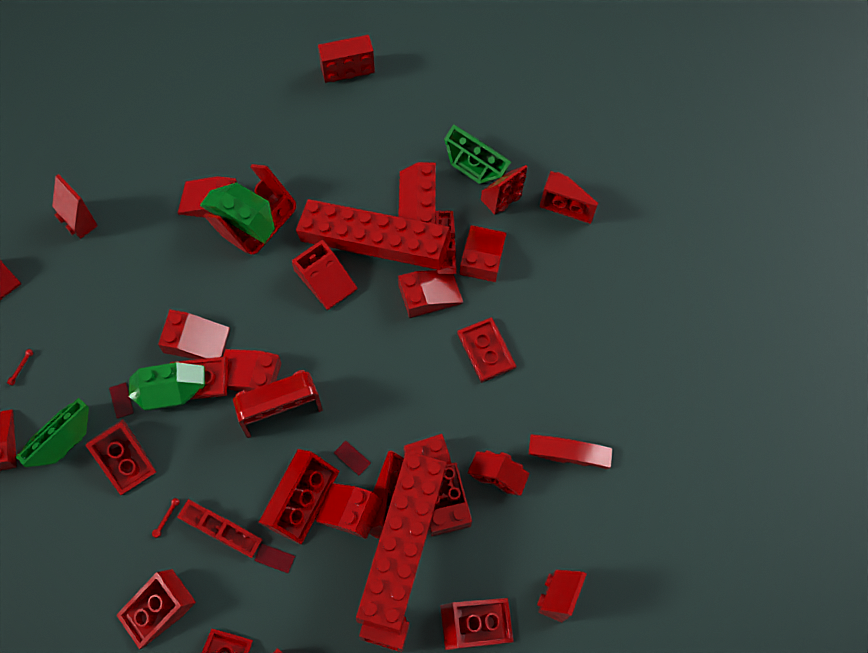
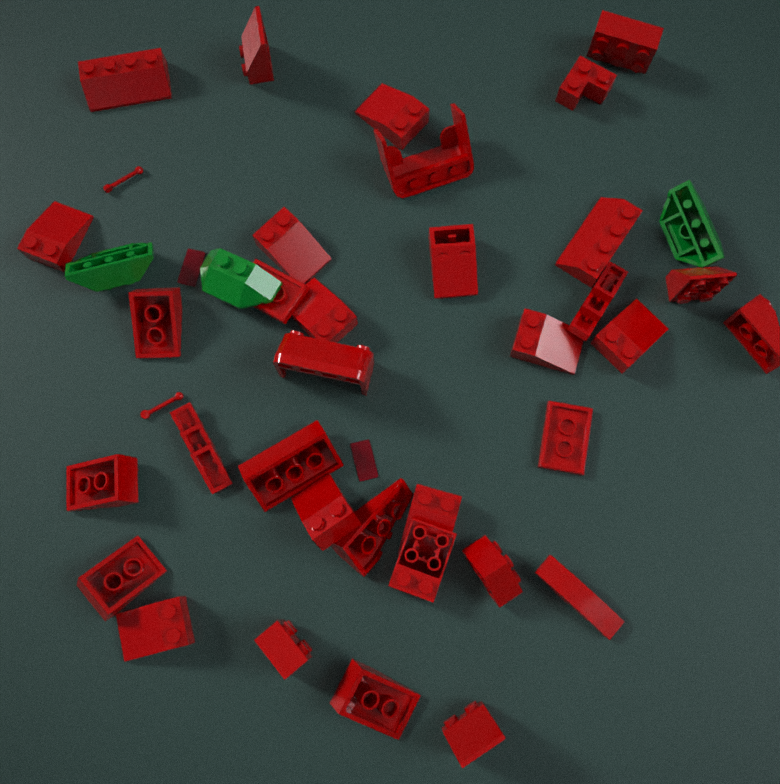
camera: 40 degrees right, 10 degrees up
(241, 209) = (414, 145): green wedge -> none
(274, 558) = (233, 508): dark red sticker -> none
(337, 98) = (585, 79): none -> red brick
(374, 234) = (530, 250): red brick -> none
(401, 543) = (349, 580): red brick -> none

